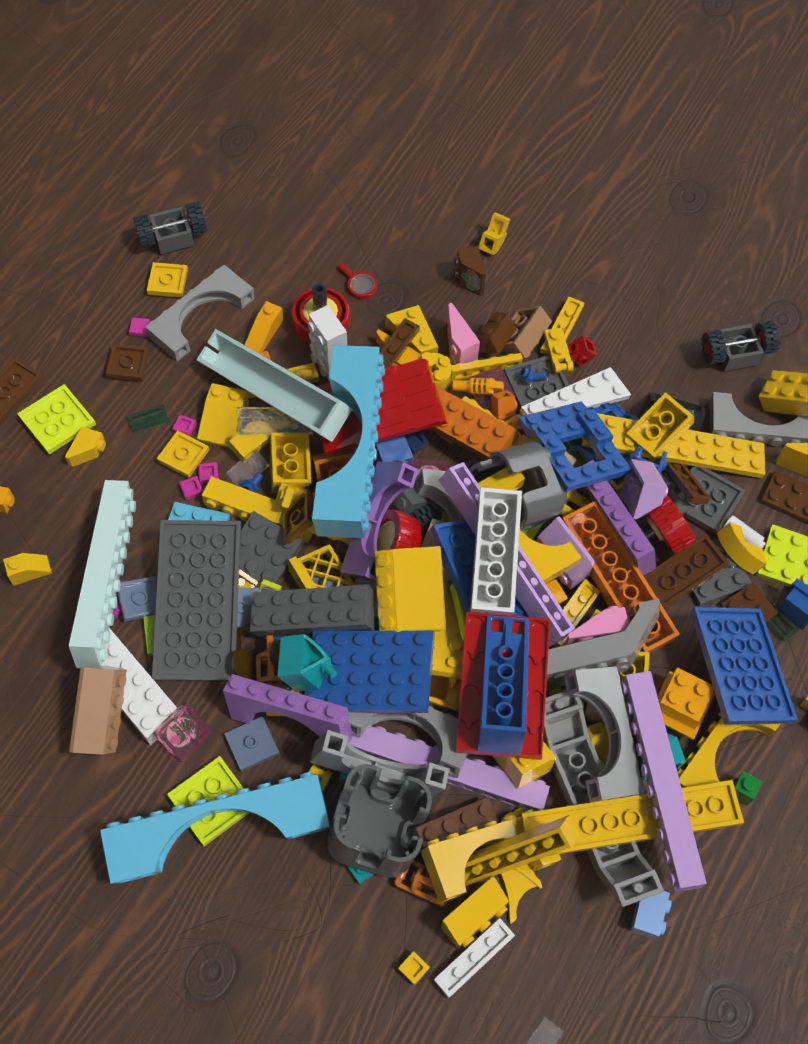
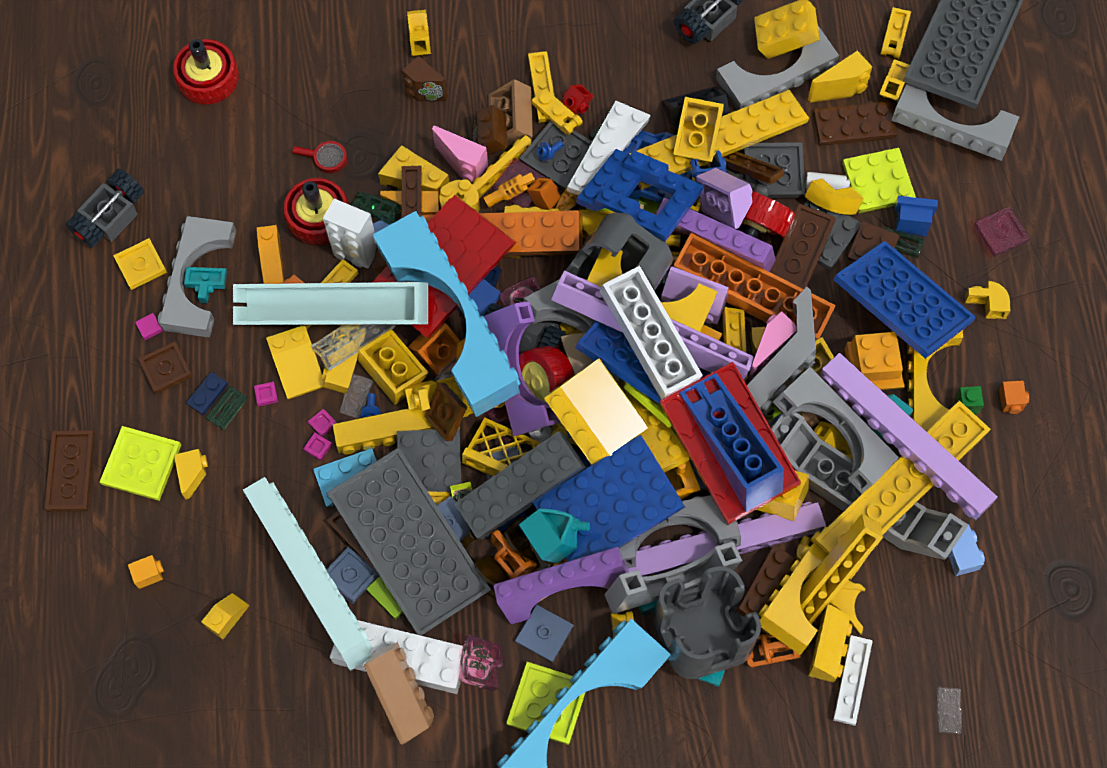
camera: 30 degrees left, 5 degrees up
(143, 399) = (207, 393): none -> dark blue plate
(183, 454) = (286, 420): yellow plate -> none
(203, 319) = (205, 280): none -> teal hinge
(317, 173) = (206, 71): none -> red wheel
(364, 336) = (376, 206): none -> clear green plate
(413, 968) = (811, 721): yellow plate -> none
(788, 811) = (1013, 396): none -> orange brick

